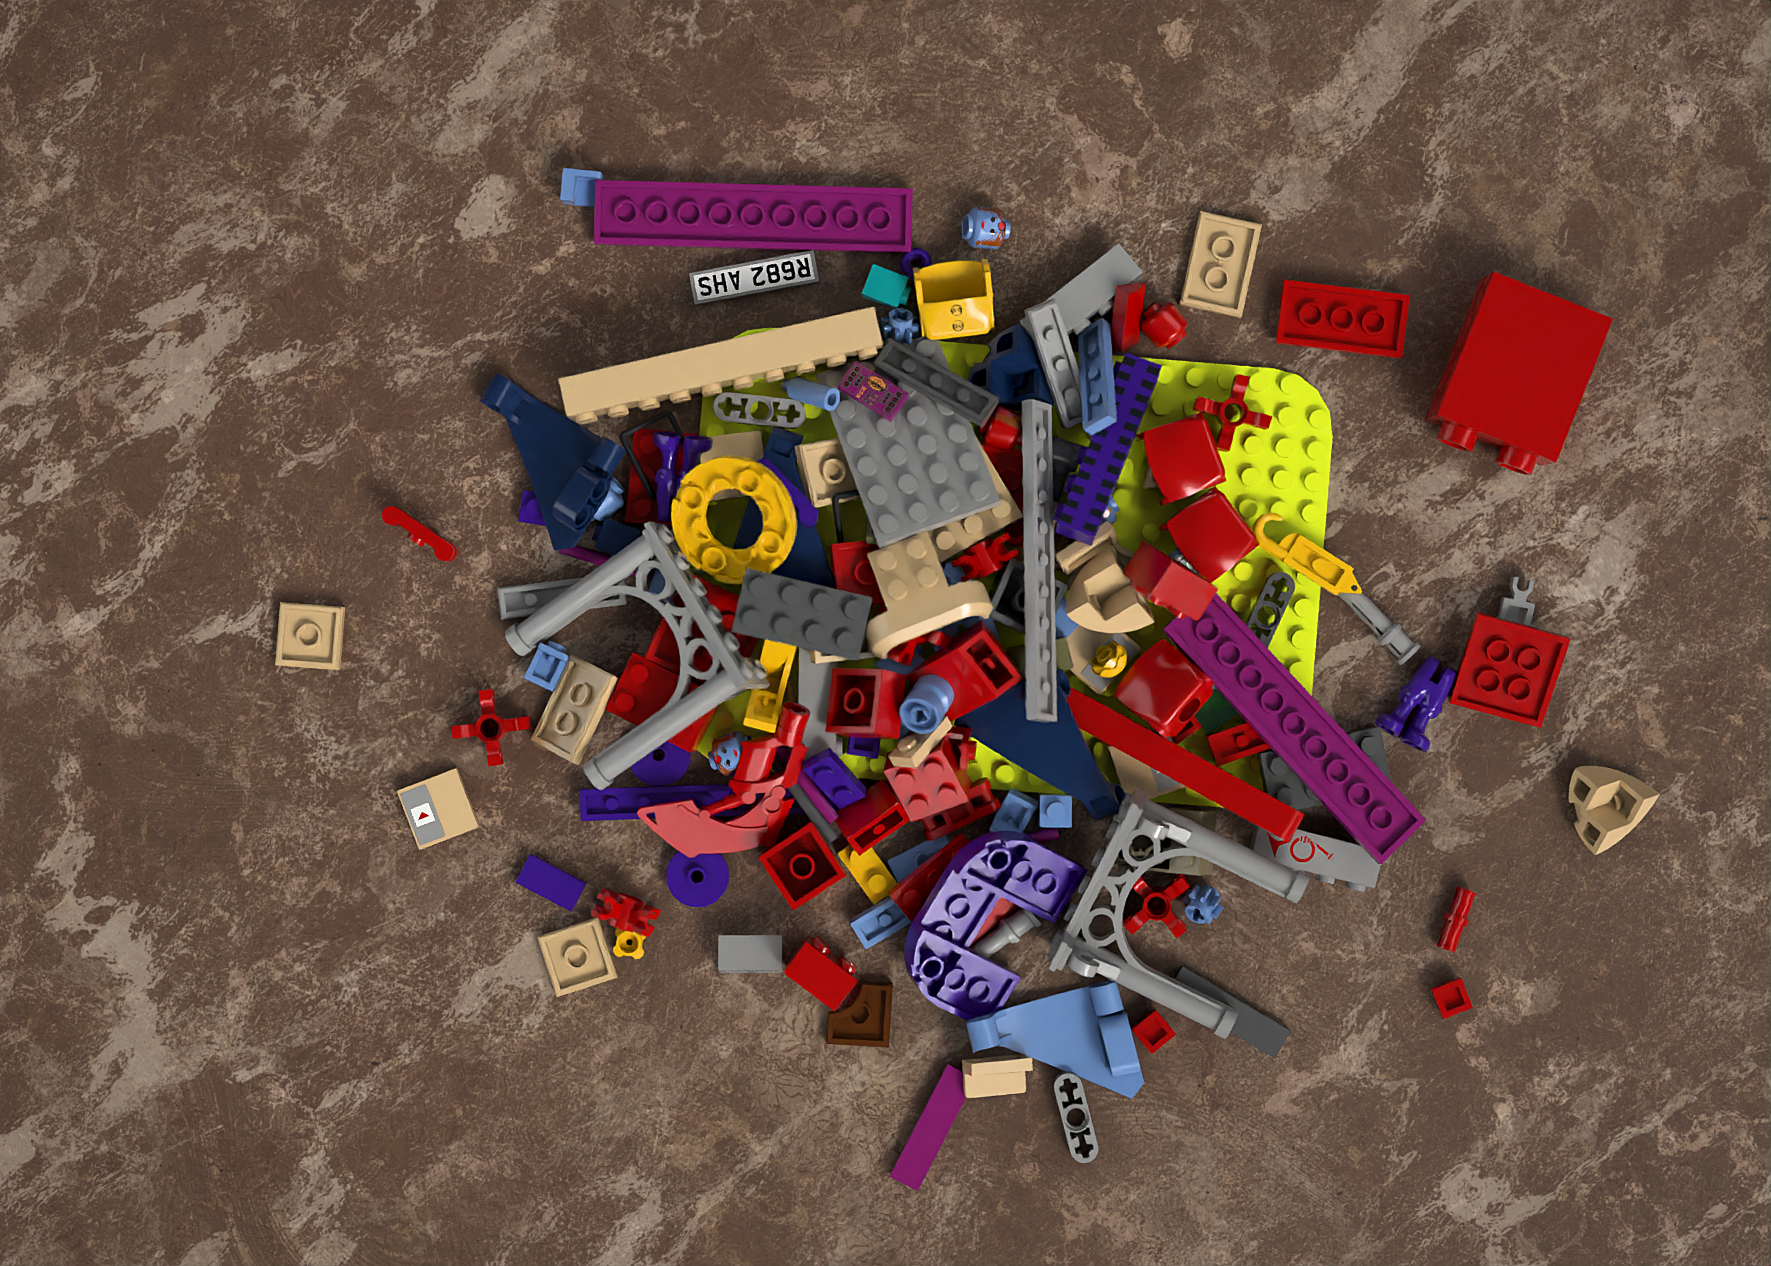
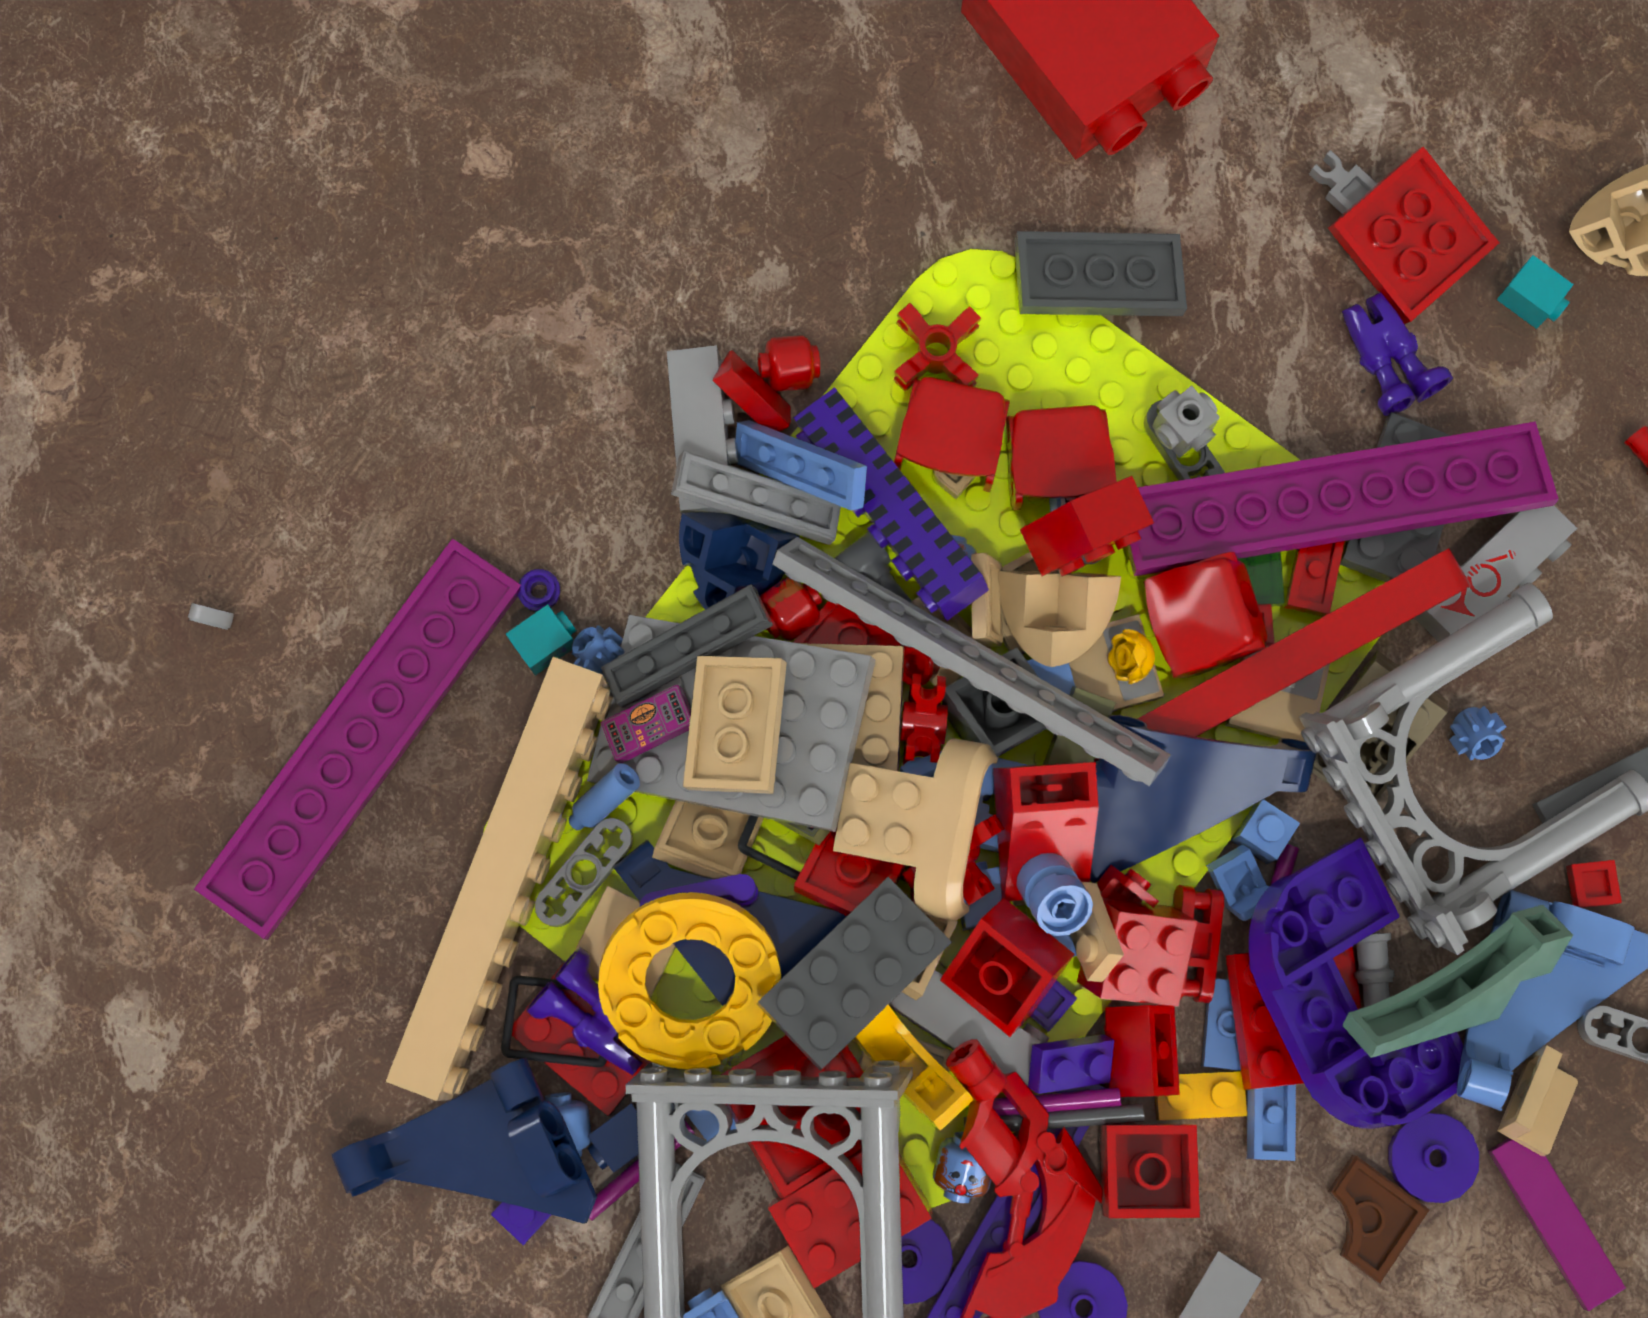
camera: 55 degrees left, 10 degrees down
(579, 187) = (188, 913): medium blue panel -> none
(754, 277) = (430, 781): tile -> none
(766, 71) = (210, 616): none -> light grey tile
(822, 972) = (1294, 1232): red brick -> none
(904, 445) = (735, 724): none -> tan plate
(918, 1015) = (1411, 1165): none -> dark purple plate
(954, 299) = (607, 569): yellow piece -> none
(985, 227) = (551, 487): medium blue head -> none
(1030, 988) = (1468, 989): none -> sand green arch
(1166, 914) = (1448, 807): red pin -> none
(1220, 264) = (763, 265): tan tile -> none
(1271, 604) = (1177, 431): none -> light grey brick
(1308, 559) = (1155, 369): yellow plate -> none
(1342, 319) = (909, 174): red plate -> none
(1351, 484) = (1100, 273): none -> dark grey plate
(1387, 632) = (1288, 339): light grey pin -> none
(1521, 772) = (1536, 293): none -> teal brick

